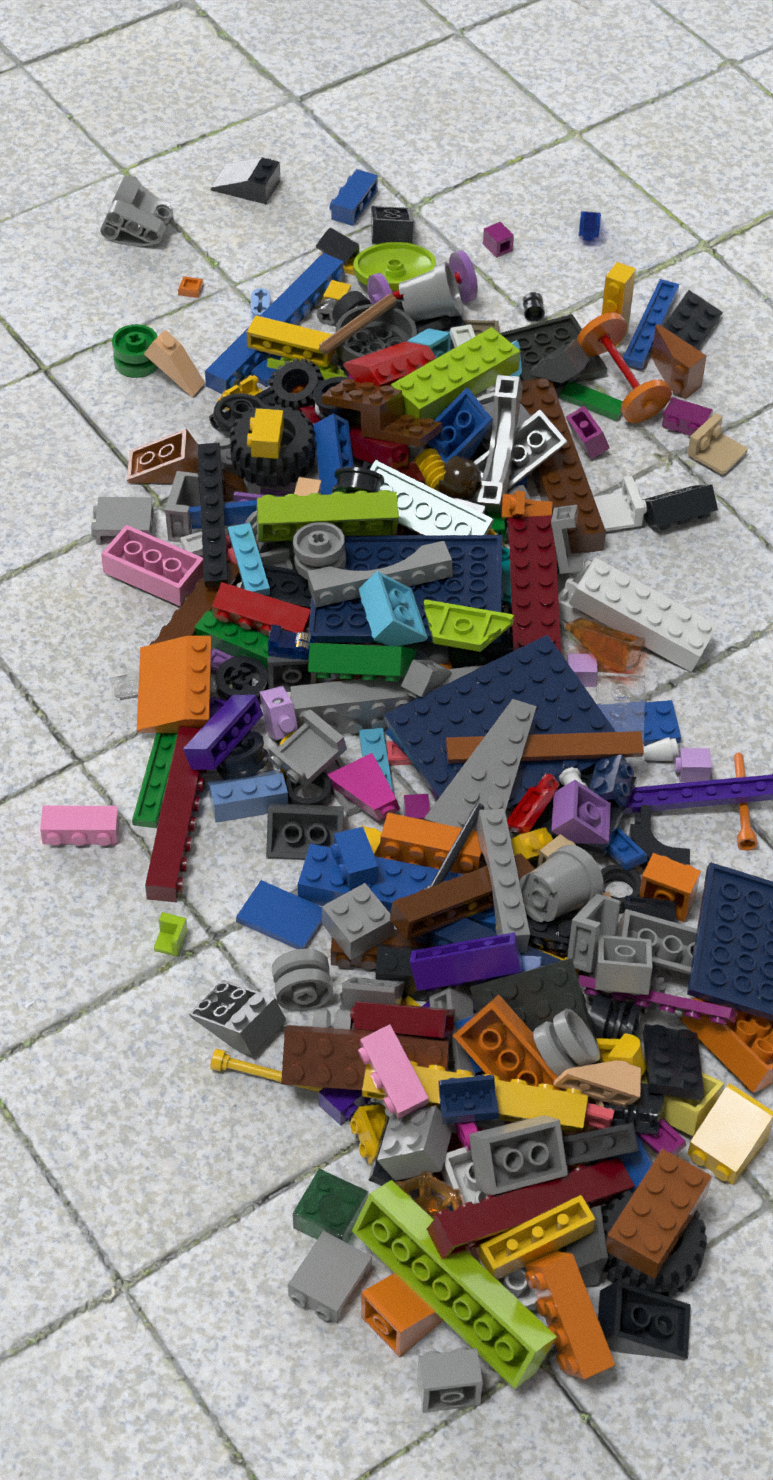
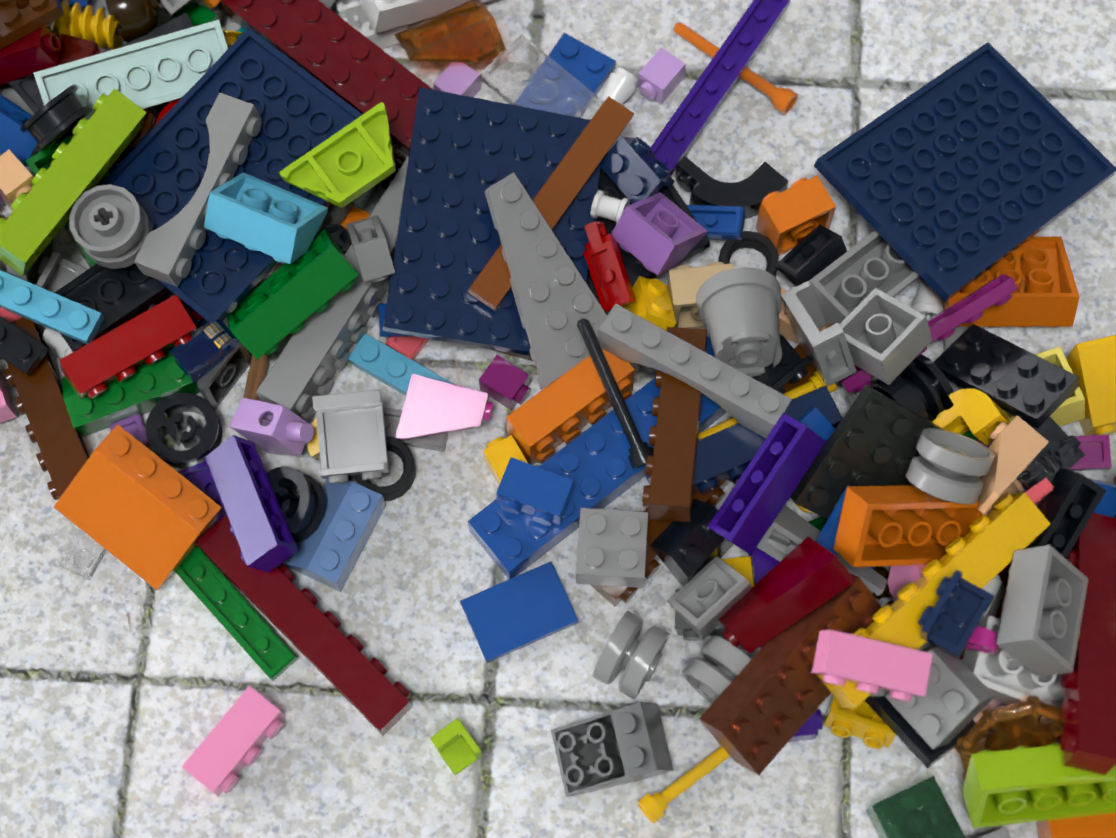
camera: 50 degrees left, 20 degrees up
(297, 826) = (434, 510): dark grey slope -> none

